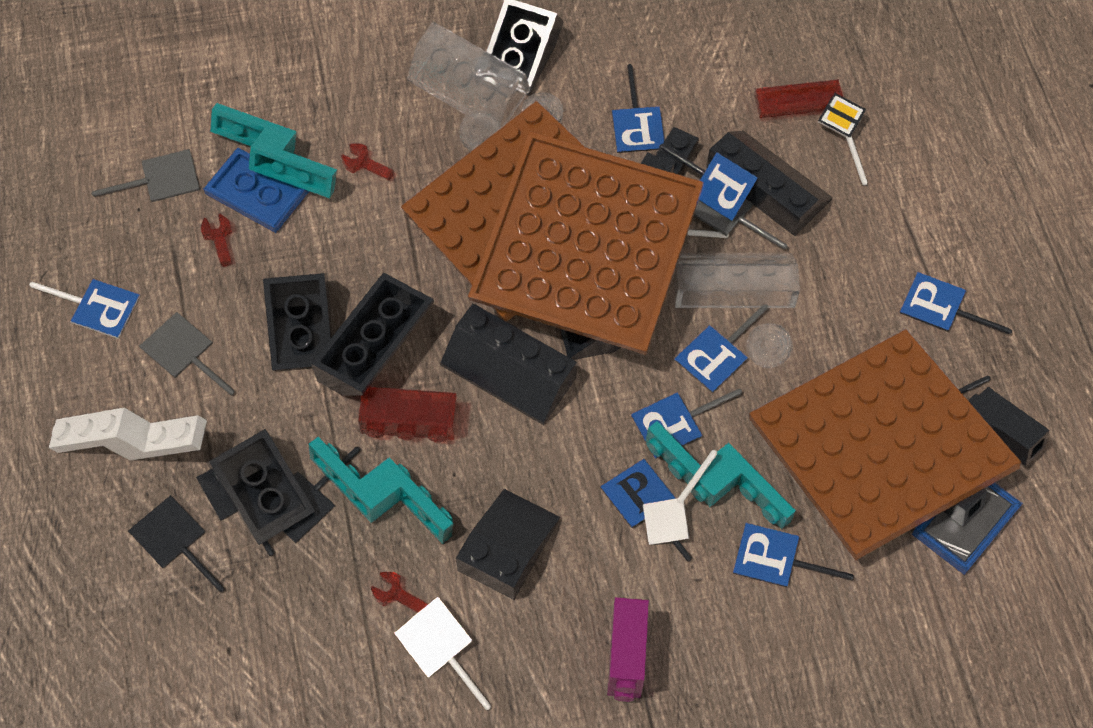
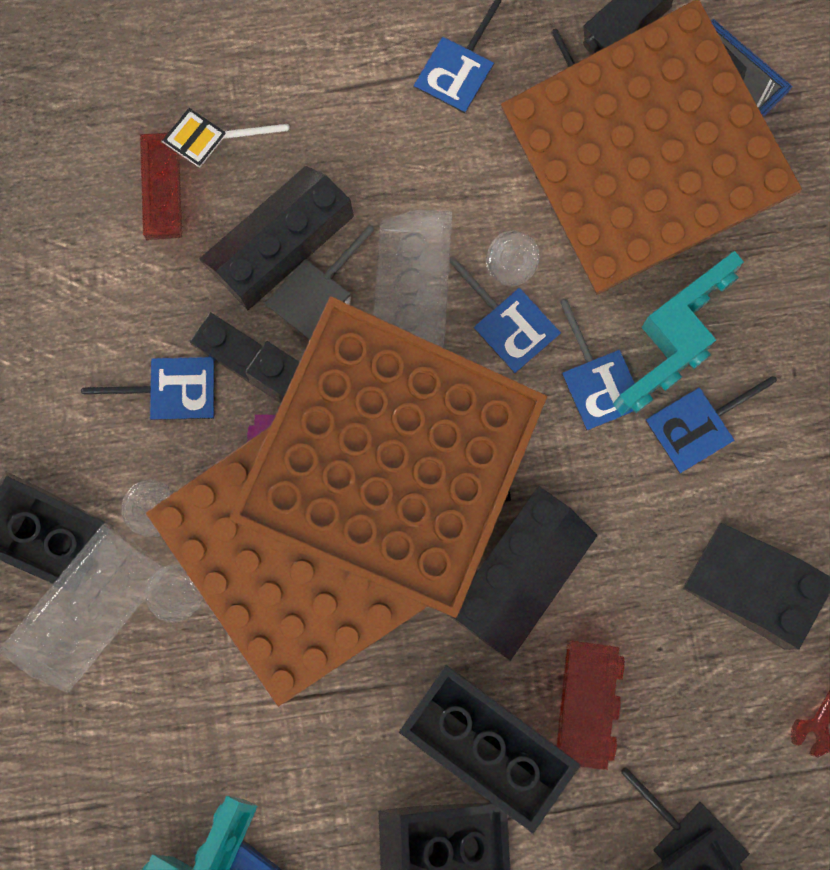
camera: 80 degrees left, 15 degrees up
(365, 162) = (200, 755): clear red bar -> none
(381, 489) = (691, 743): teal bracket -> none
(667, 518) = (731, 396): white piece -> none
(724, 183) = (289, 290): blue piece -> none
(770, 556) = (766, 291): blue piece -> none

